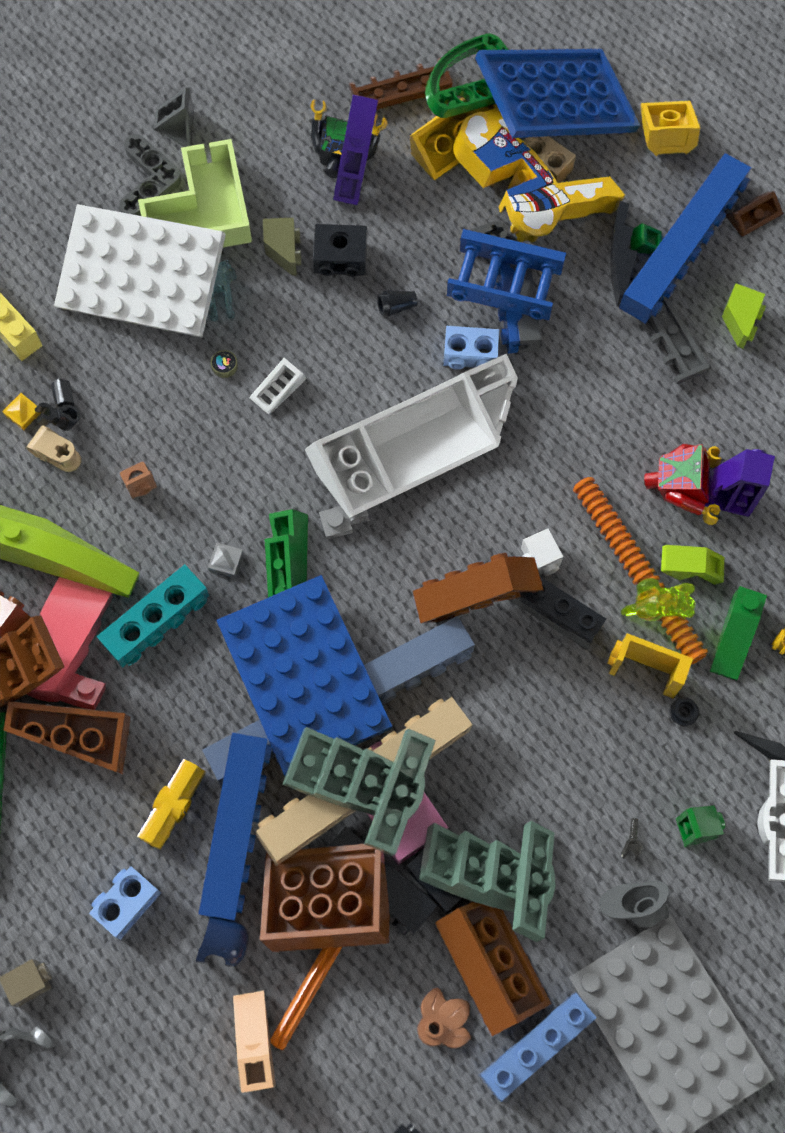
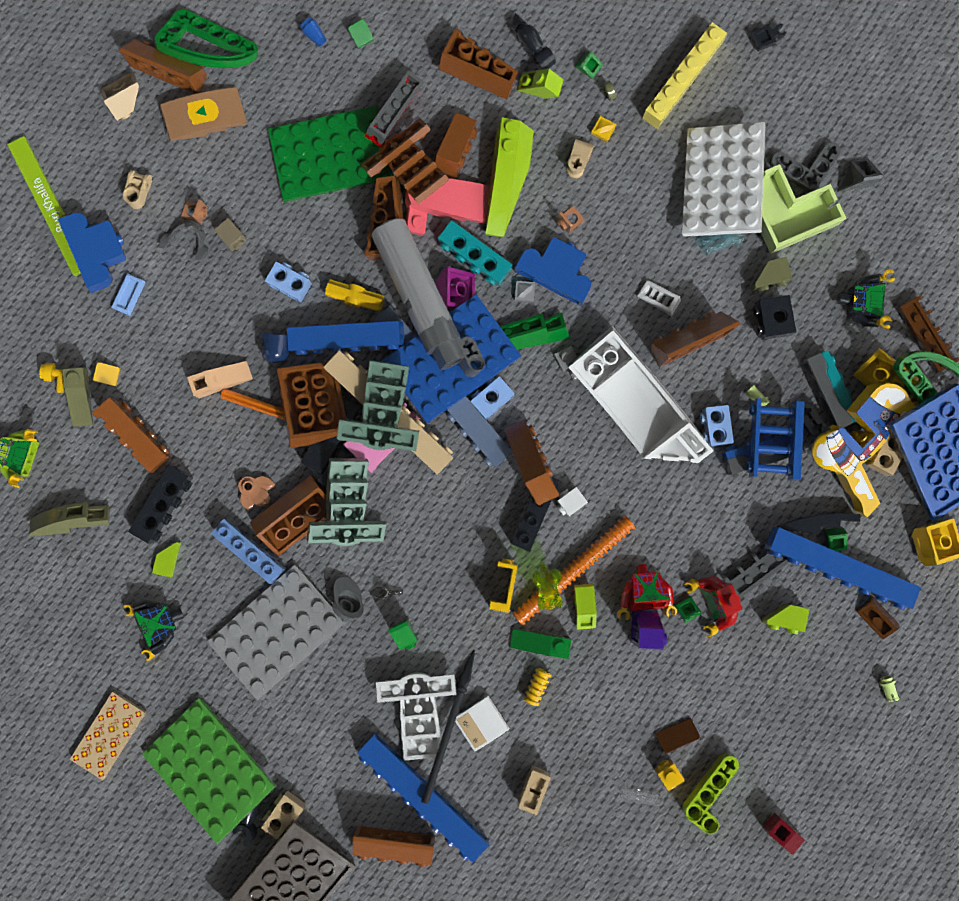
camera: 80 degrees right, 15 degrees up
(64, 413) = (606, 158): black bar -> none
(200, 657) = (455, 287): none -> magenta slope
(207, 508) = (557, 270): none -> blue brick
(208, 687) = (424, 300): none -> light grey piece
(224, 364) = (669, 256): tile -> none
(345, 350) = (693, 337): none -> dark orange slope
(355, 149) = (858, 310): dark purple slope -> none
(369, 616) = (497, 387): none -> light blue brick
(396, 301) = (743, 366): black cone -> none
(437, 295) = (754, 393): none -> yellowish green pin
(448, 206) = (830, 388): none -> dark grey piece
(686, 703) = (485, 610): black plate -> none
(710, 387) = (720, 599): none -> red torso
(715, 432) = (688, 609): none -> green tile

